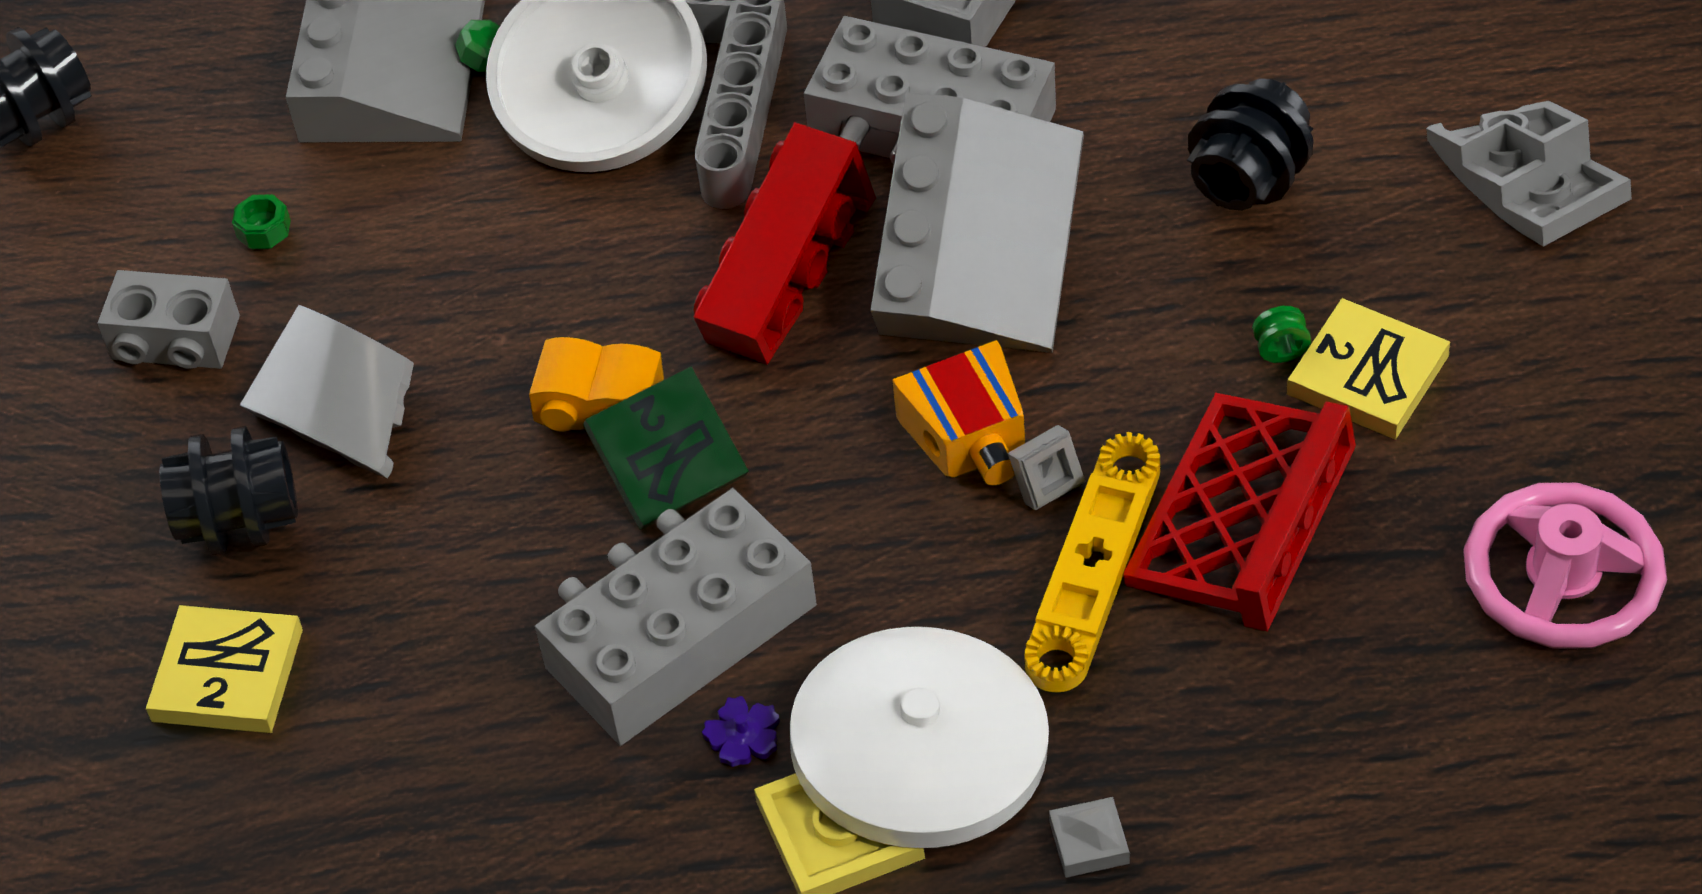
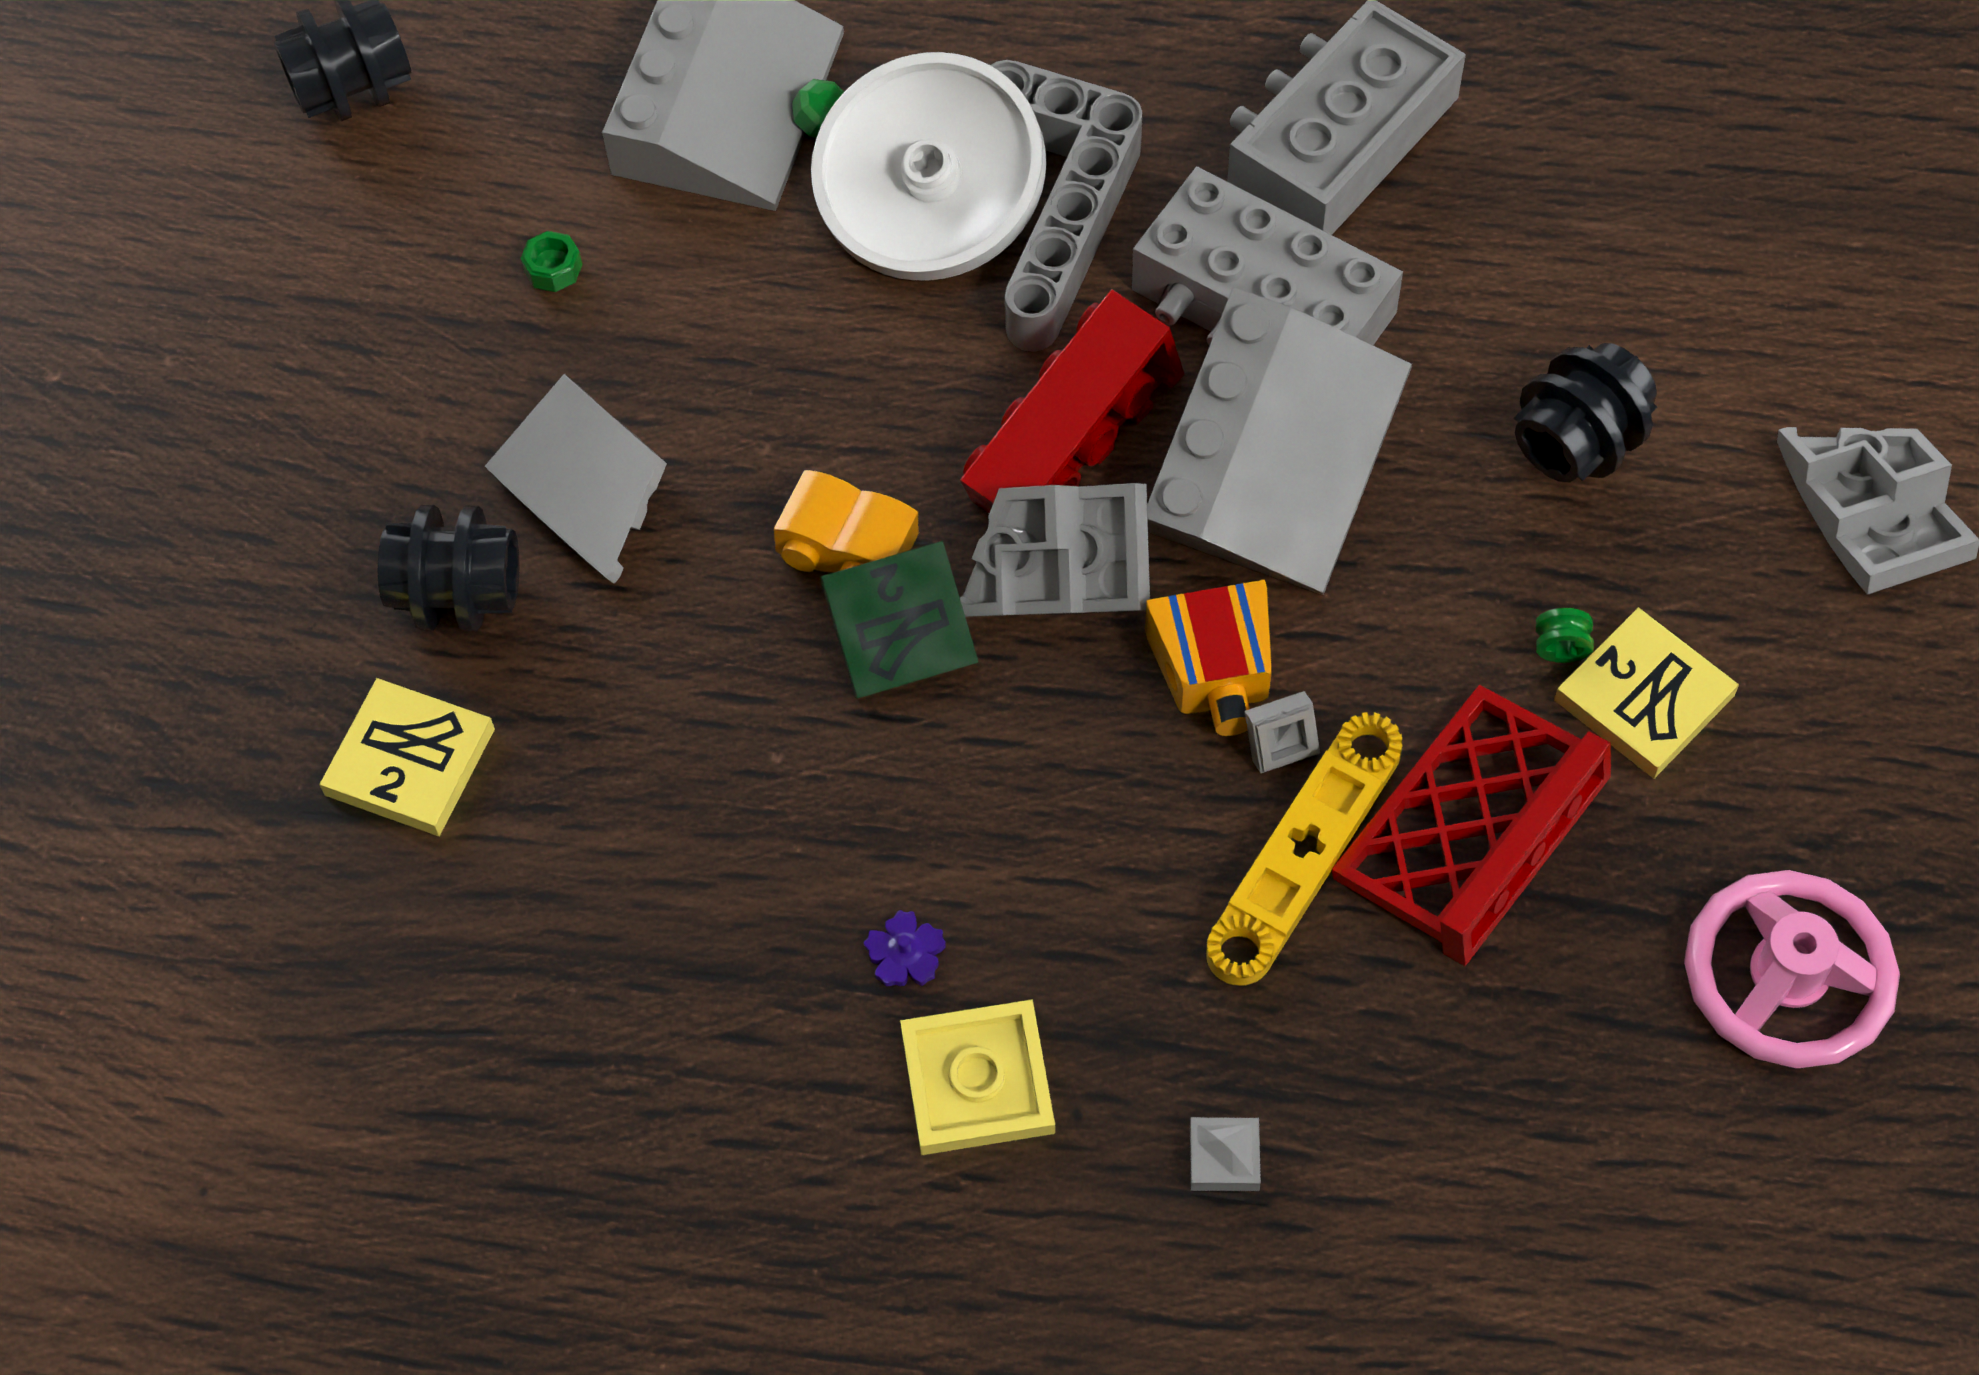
camera: 10 degrees right, 10 degrees up
(169, 319) = (437, 345): light grey brick -> none
(674, 613) = (865, 807): light grey piece -> none
(803, 358) = (1062, 552): none -> light grey slope
(919, 737) = (1079, 1003): white dish -> none

